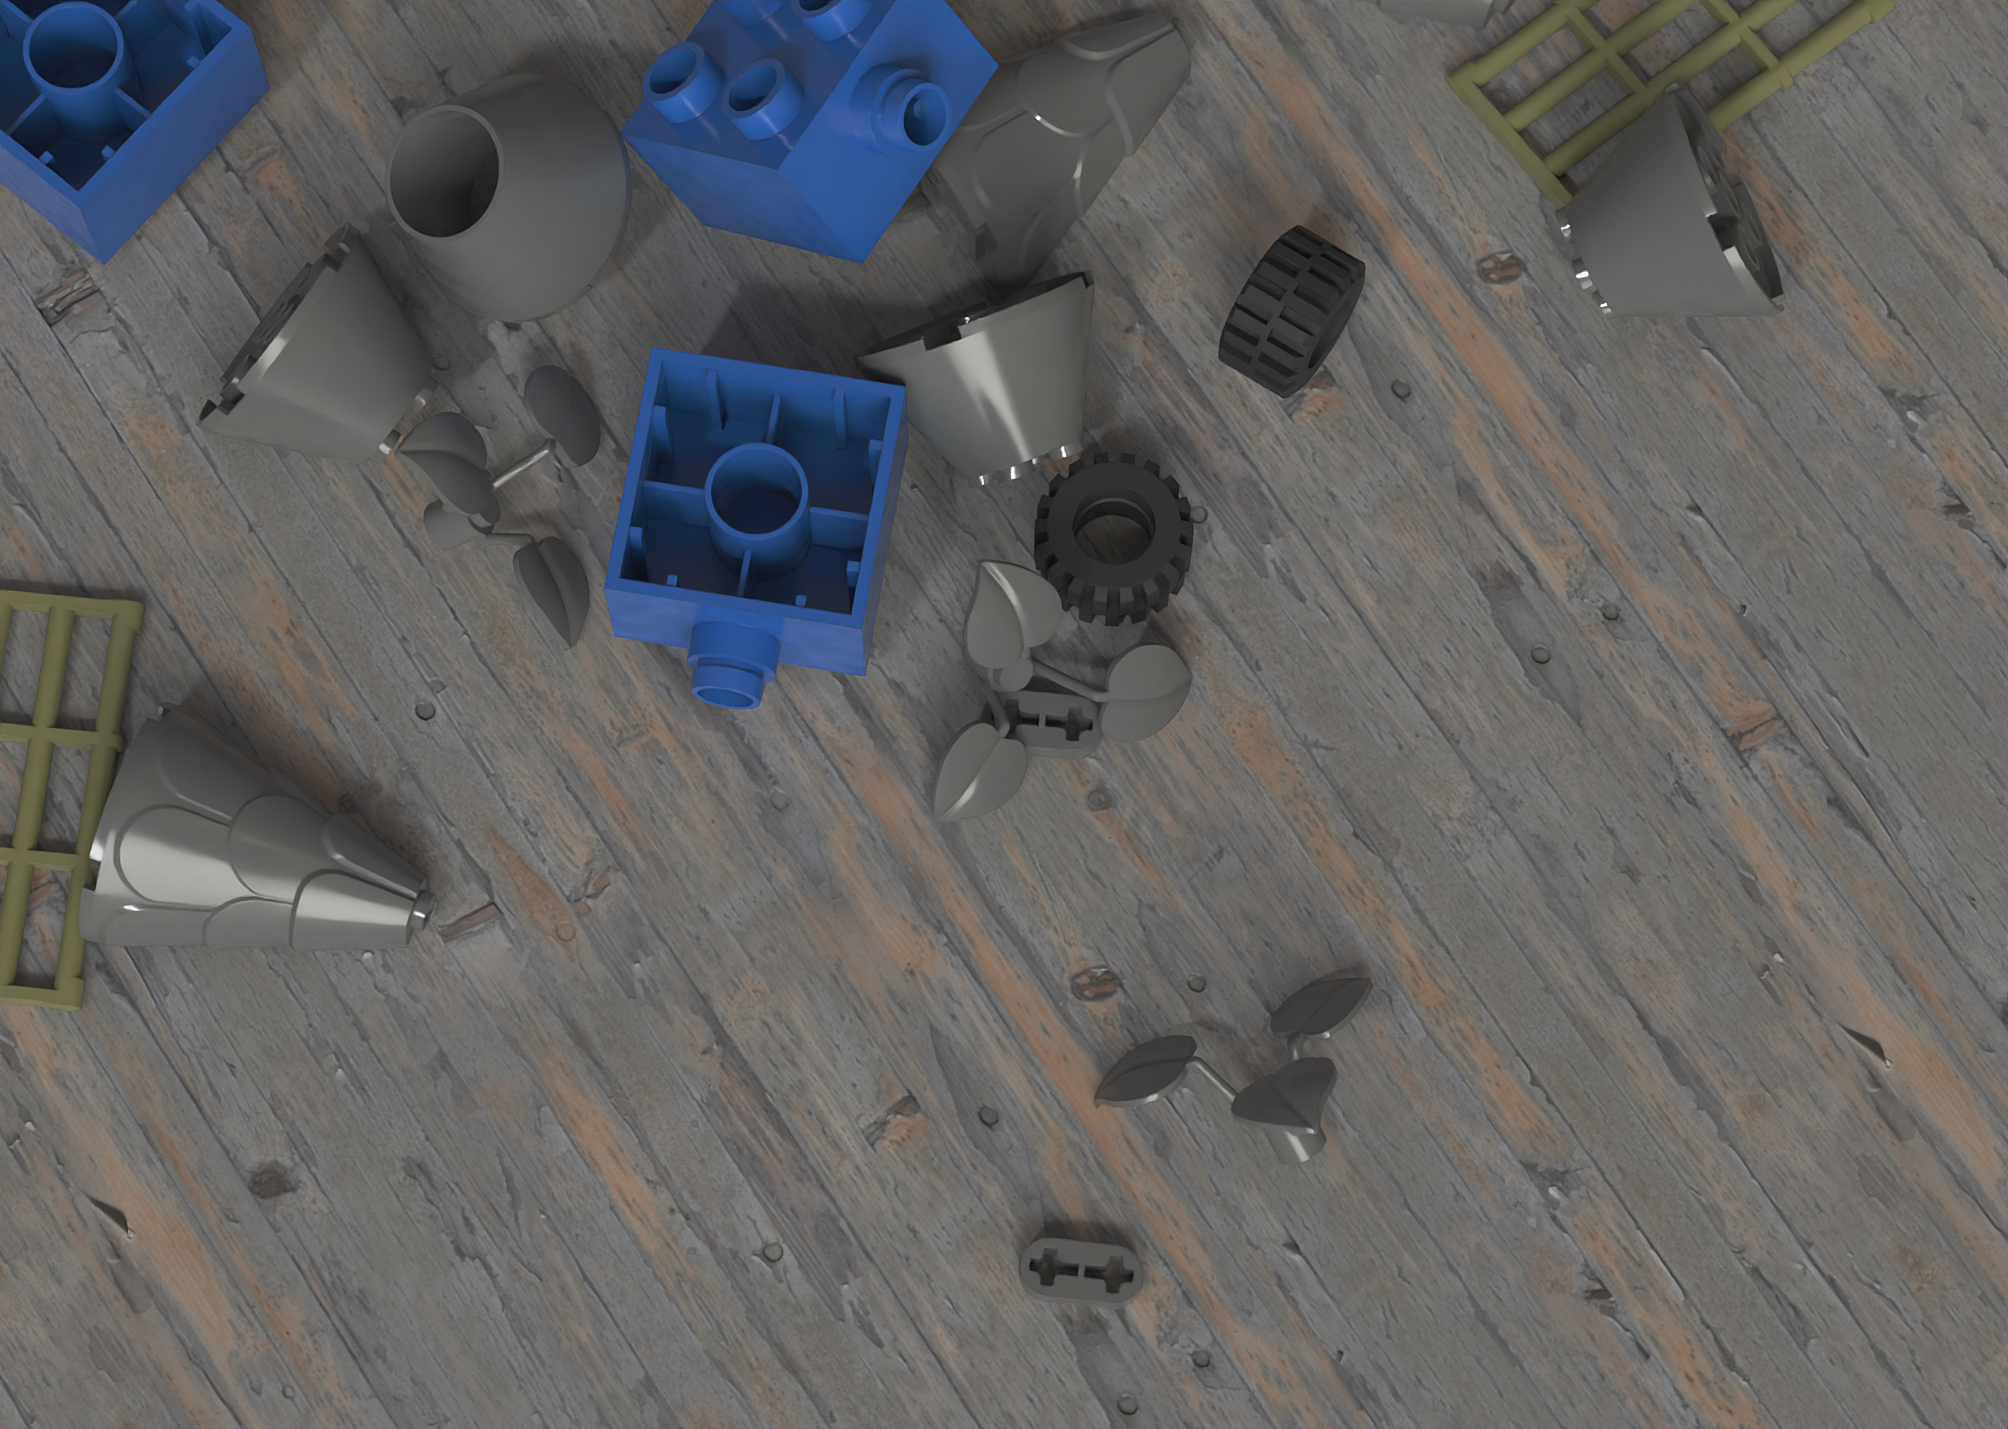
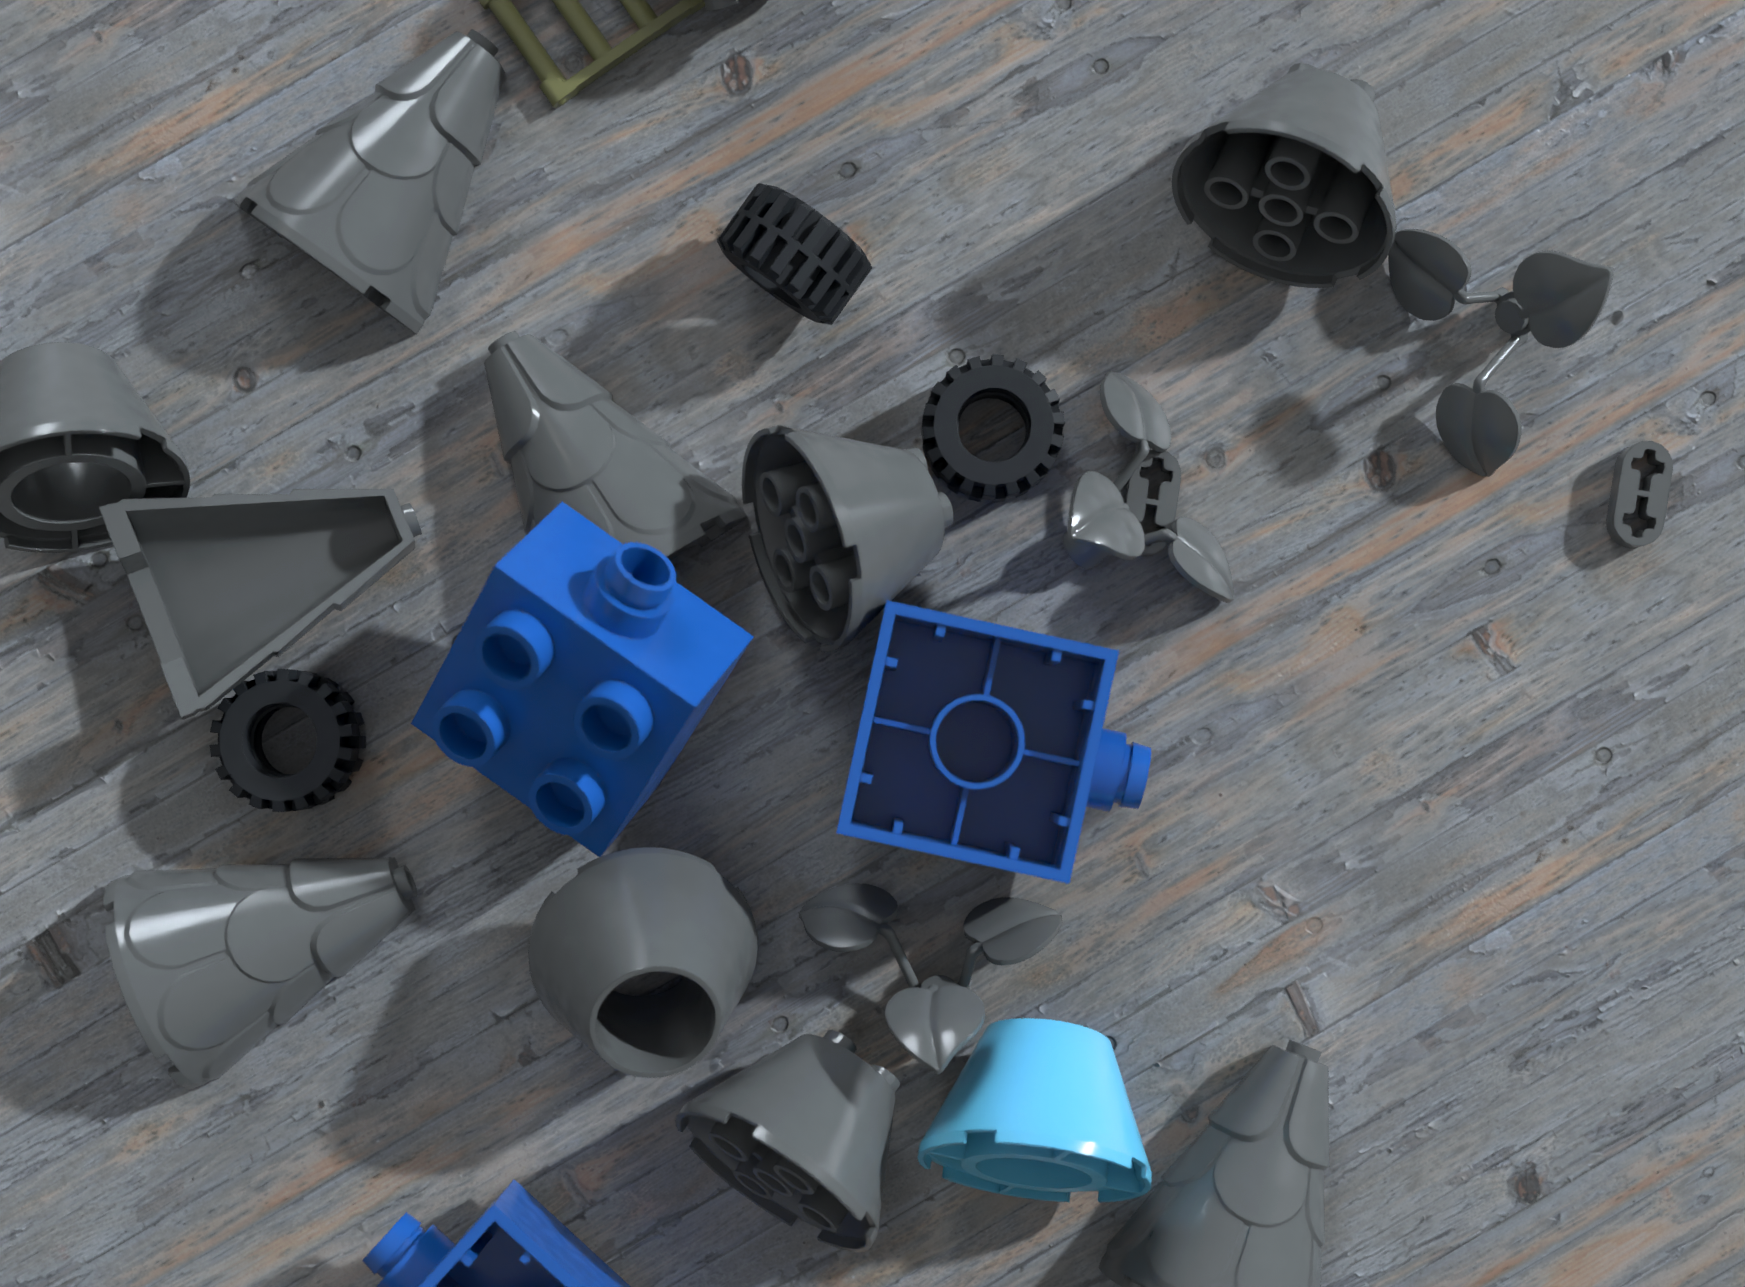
camera: 85 degrees left, 15 degrees up
(346, 603) = (1040, 1117): none -> medium azure cone
(1420, 836) = (1293, 181): none -> dark grey cone

